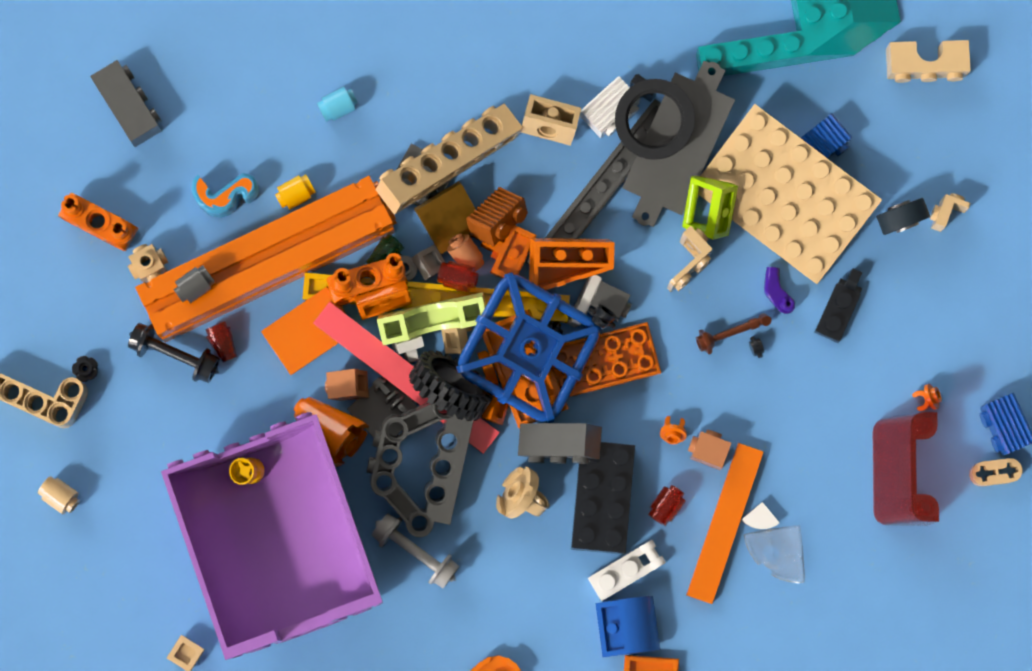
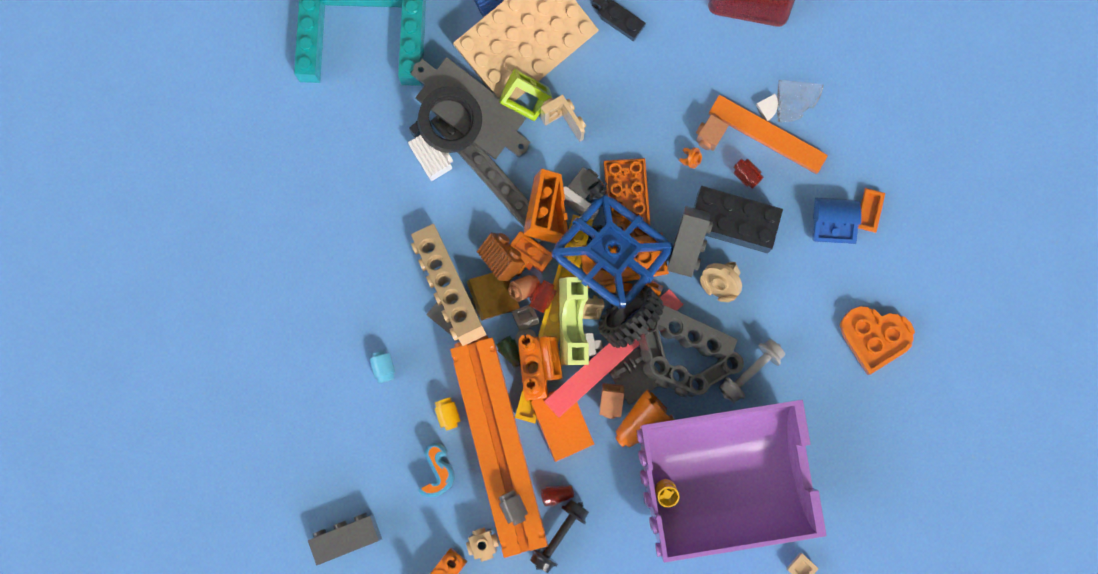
camera: 75 degrees left, 0 degrees up
(550, 119) = (431, 201): tan brick -> none
(625, 571) = (792, 214): white plate -> none
(707, 341) = (627, 120): copper piece -> none
(756, 347) = (638, 84): black piece -> none
(775, 293) = (600, 61): dark purple arm -> none

